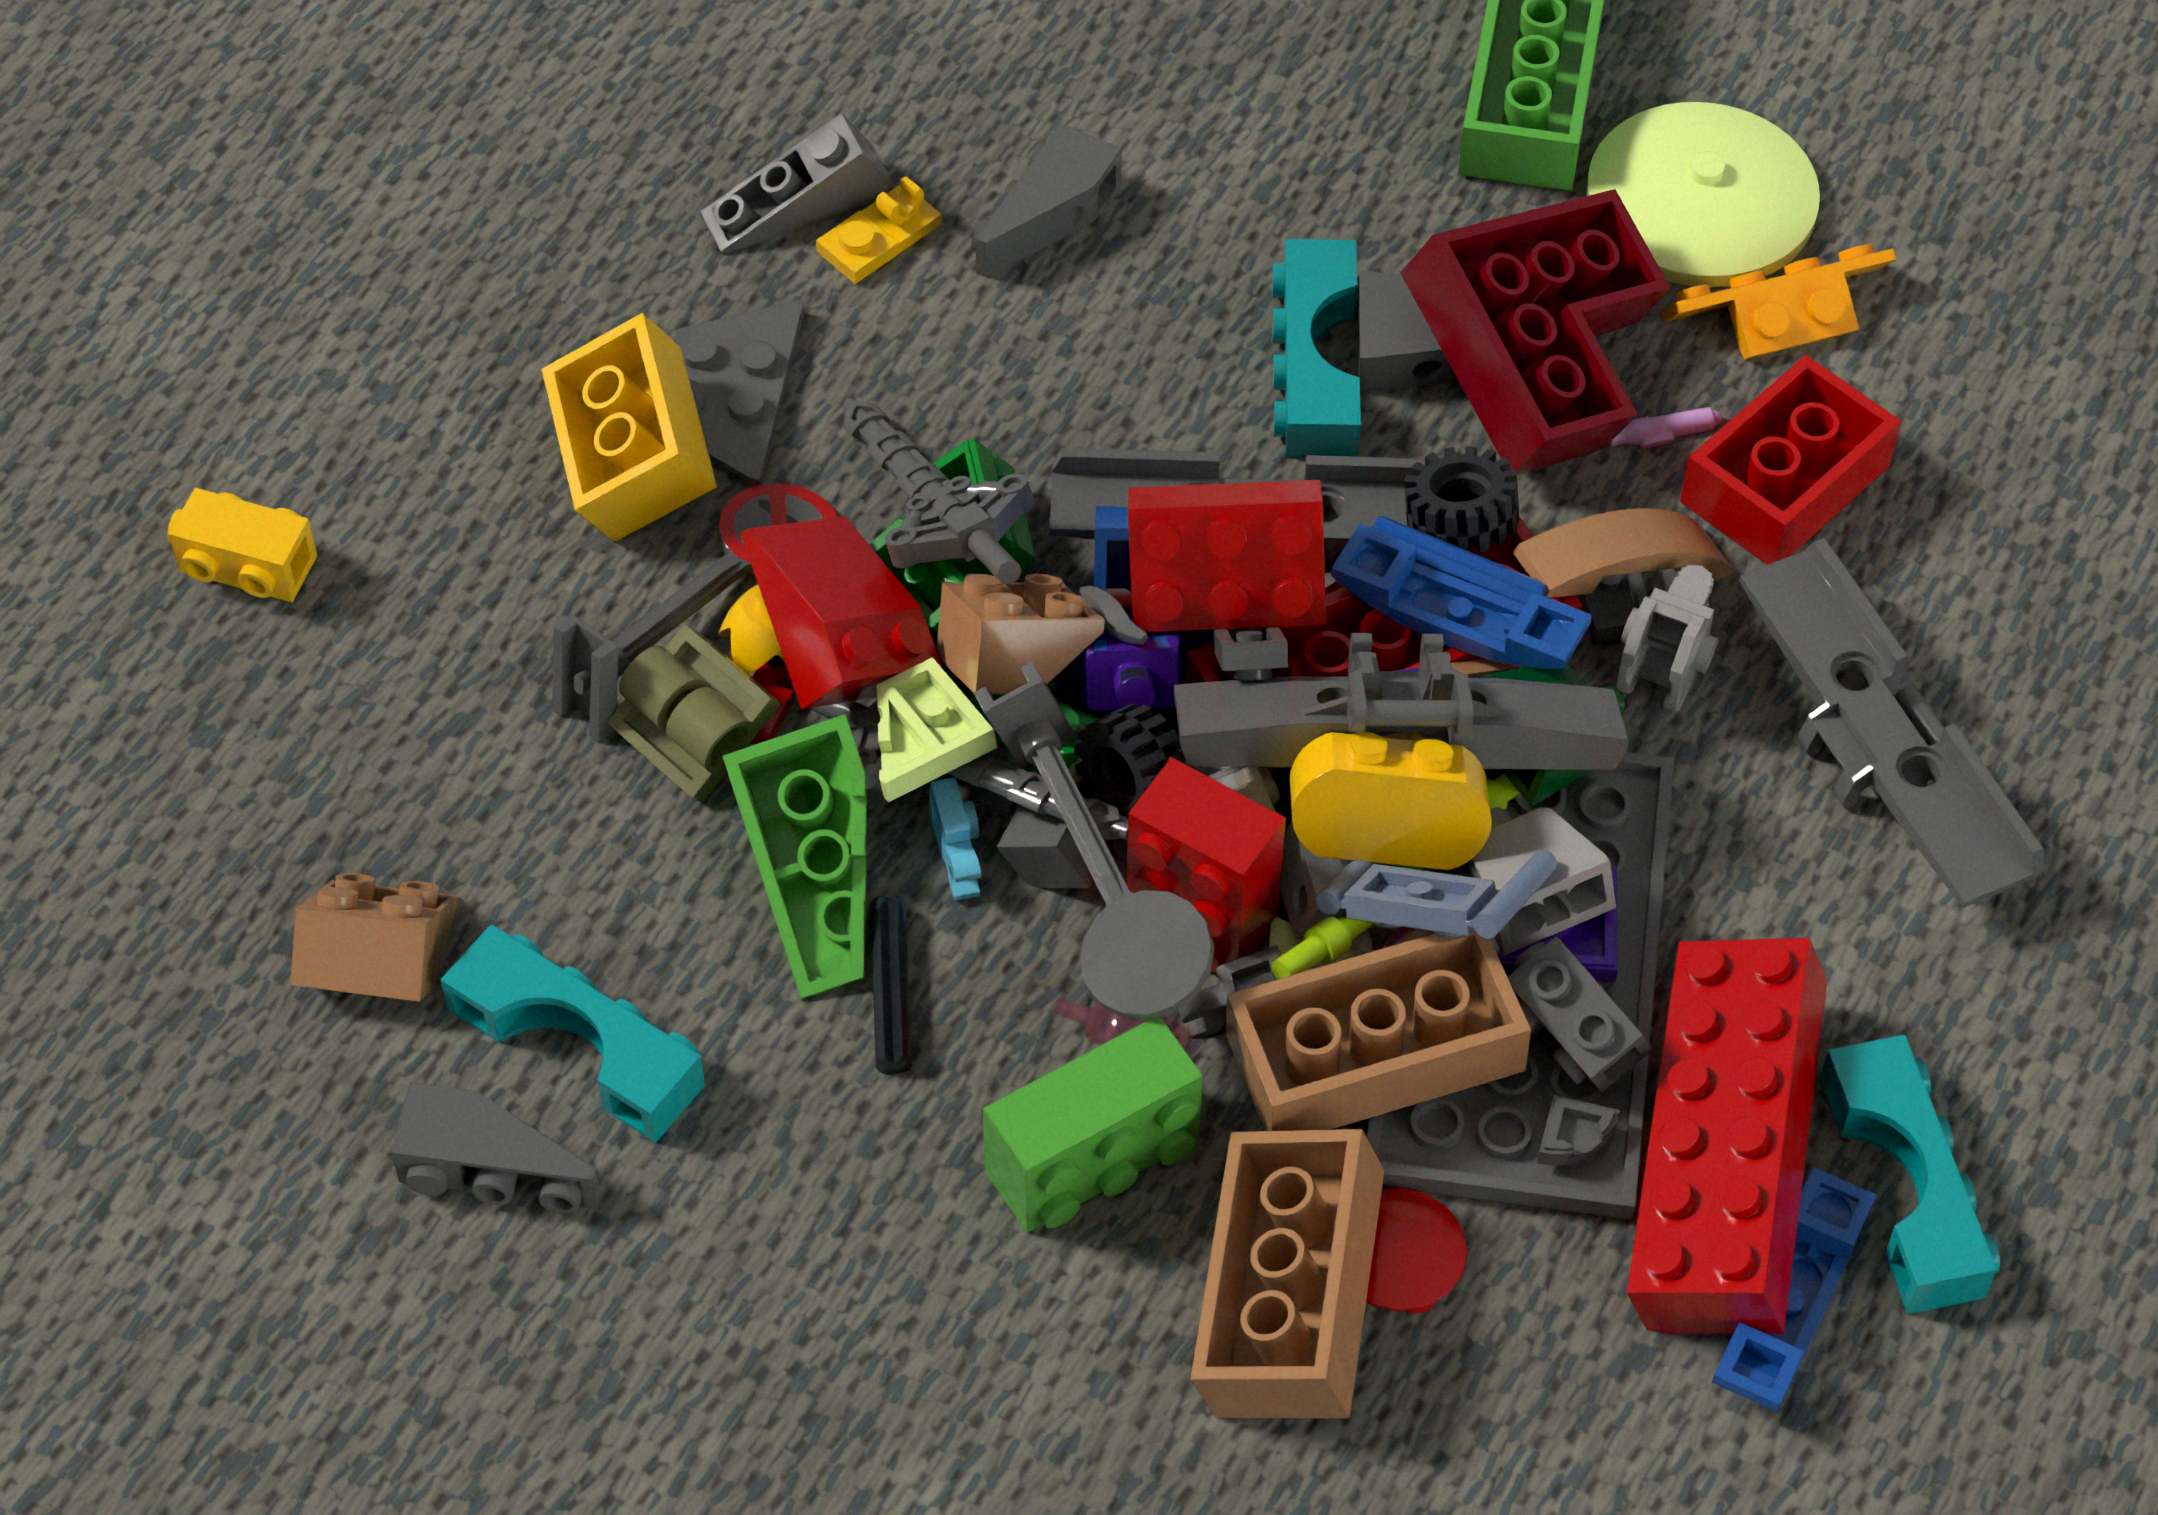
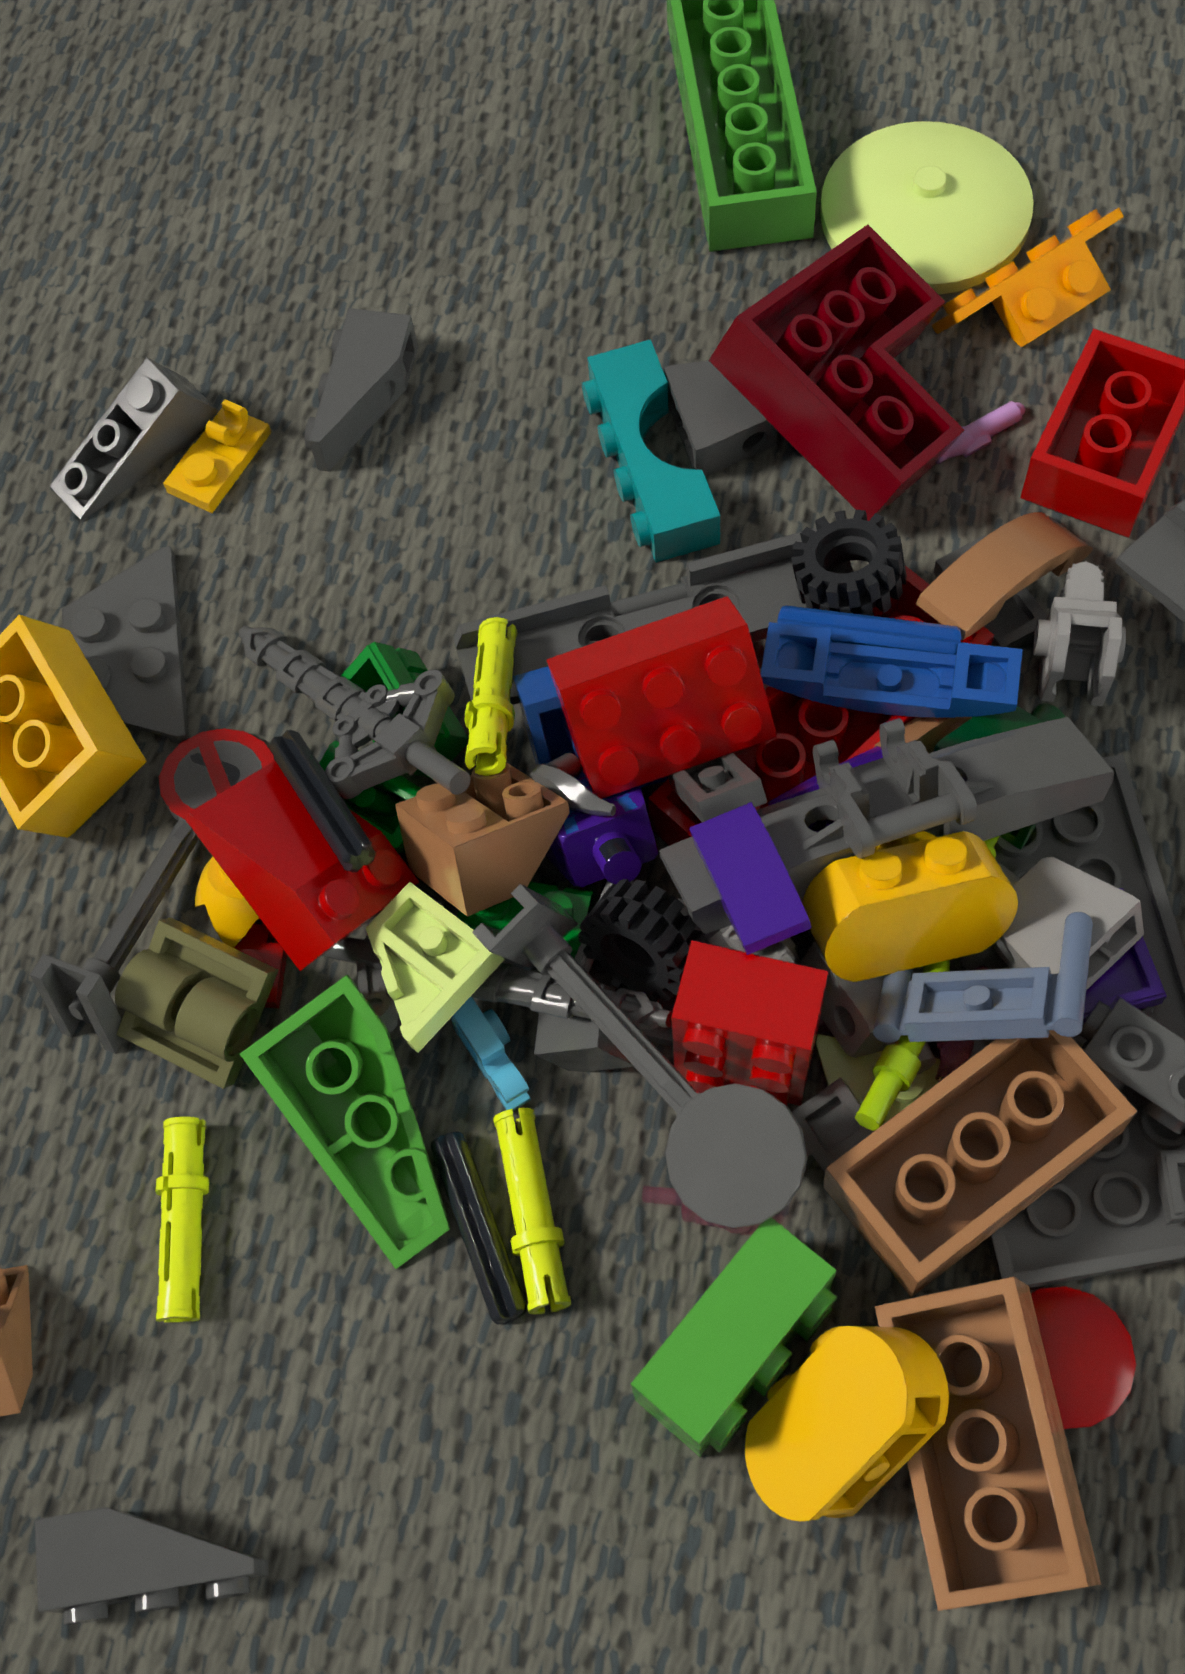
camera: 10 degrees left, 10 degrees up
(511, 988) = (263, 1414): teal arch -> none
(623, 874) = (181, 1215): none -> neon yellow pin
(874, 558) = (322, 801): none -> black axle
(943, 1004) = (536, 1236): none -> neon yellow pin
(1064, 523) = (490, 712): none -> neon yellow pin
(1166, 1212) = (845, 1421): none -> yellow brick
(1243, 719) = (750, 878): none -> dark purple slope

